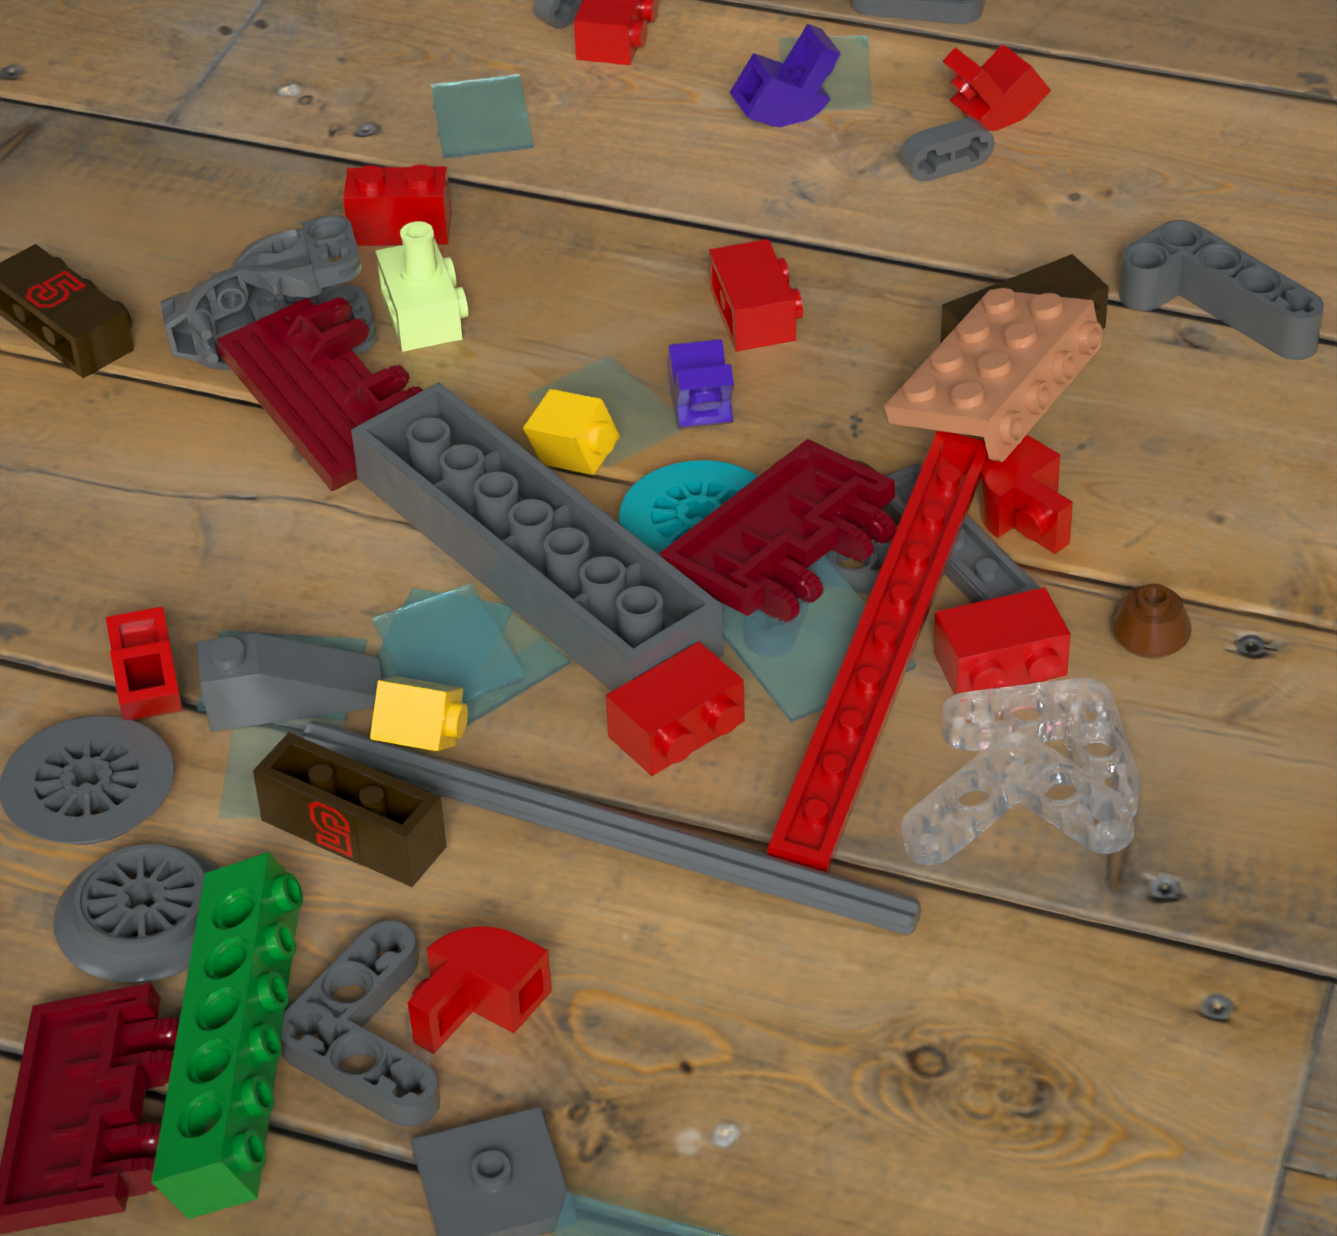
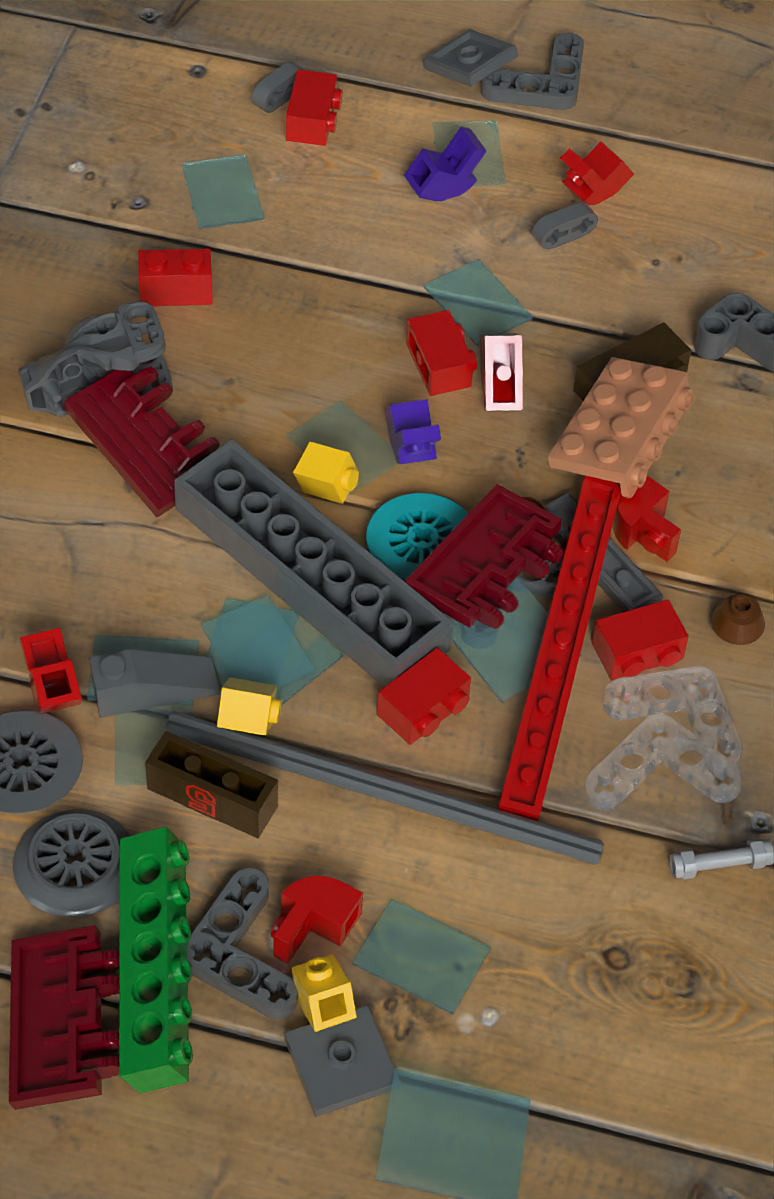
camera: 10 degrees left, 10 degrees up
(420, 290) = (201, 352): yellowish green brick -> none
(473, 1082) = (324, 992): none -> yellow brick
(633, 1049) = (421, 956): none -> clear light blue window
(818, 241) = (478, 301): none -> clear light blue window
(837, 314) = (501, 371): none -> slope
(1153, 925) = (756, 853): none -> light grey bar

